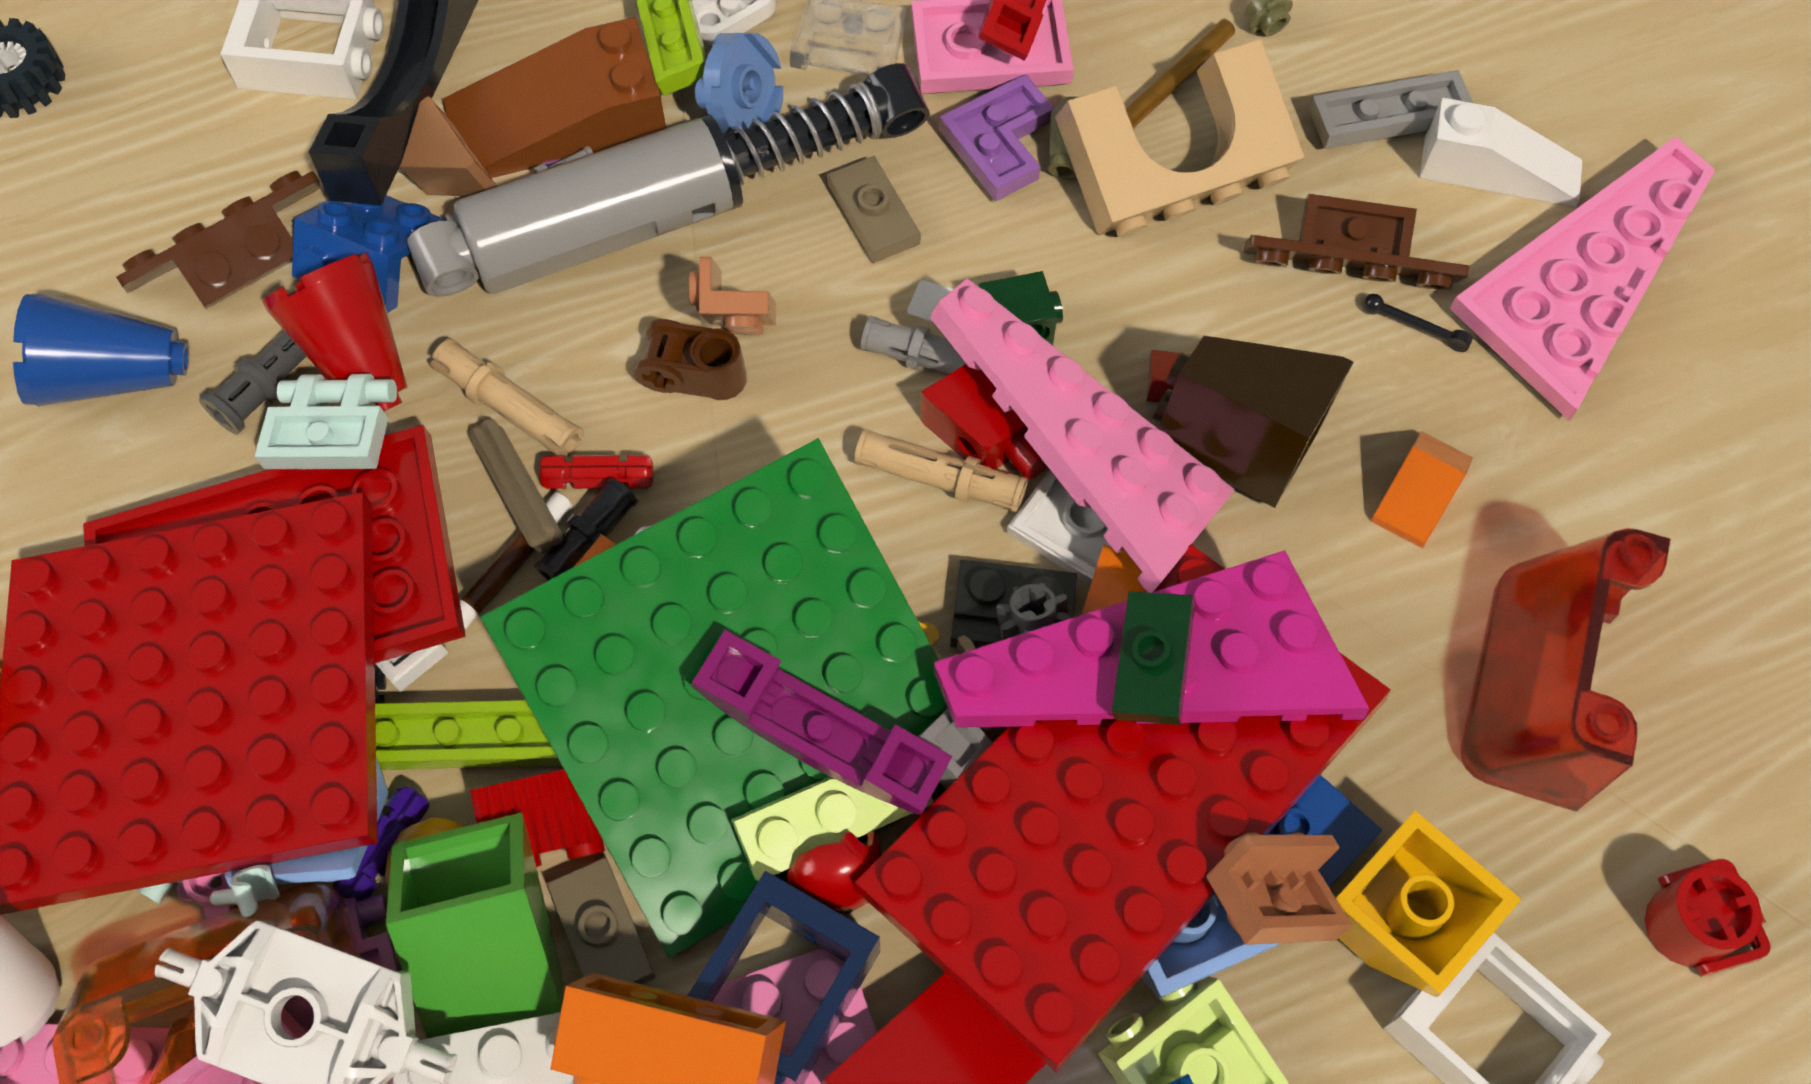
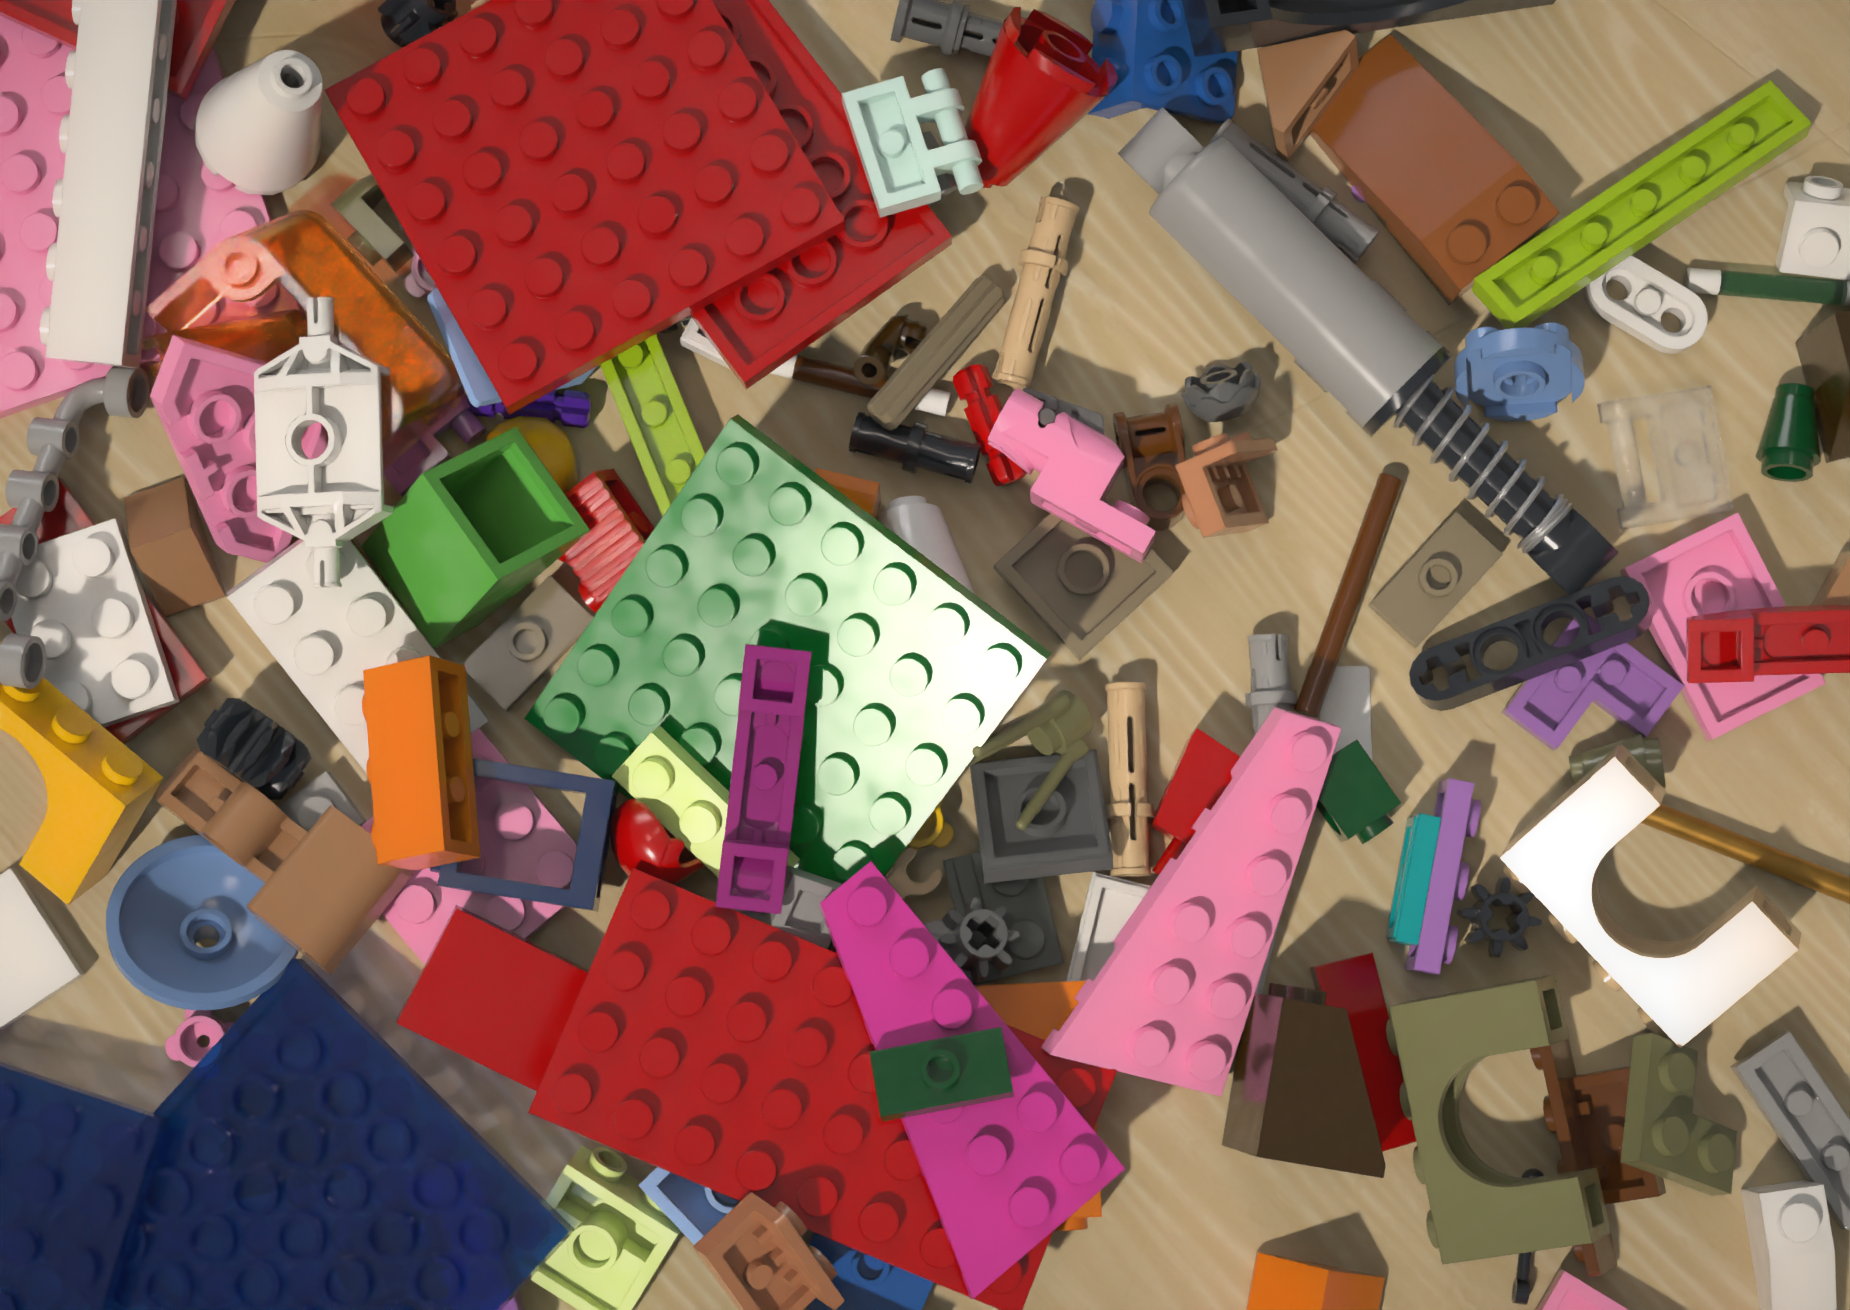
camera: 70 degrees right, 20 degrees up
(118, 929) = (371, 234): none -> olive plate
(247, 889) = (426, 317): light aqua hand -> none
(486, 520) = (880, 351): none -> dark brown arm
(657, 292) = (1222, 392): none -> dark grey plate
(668, 404) = (1074, 467): none -> bright pink plate
(744, 430) = (1078, 581): none -> dark tan plate
(855, 266) = (1348, 595): none -> reddish brown bar
(880, 504) = (1051, 728): none -> olive plant
(948, 540) = (1062, 838): none -> dark grey plate
(952, 152) = (1527, 633): none -> black beam
(1105, 294) = (1413, 879): none -> teal tile
(1110, 276) = (1448, 876): none -> medium lavender plate
(1157, 248) = (1481, 914): none -> black gear
(1373, 187) = (1660, 1125): none -> olive plate
(1392, 334) = (1471, 1205): none -> olive arch

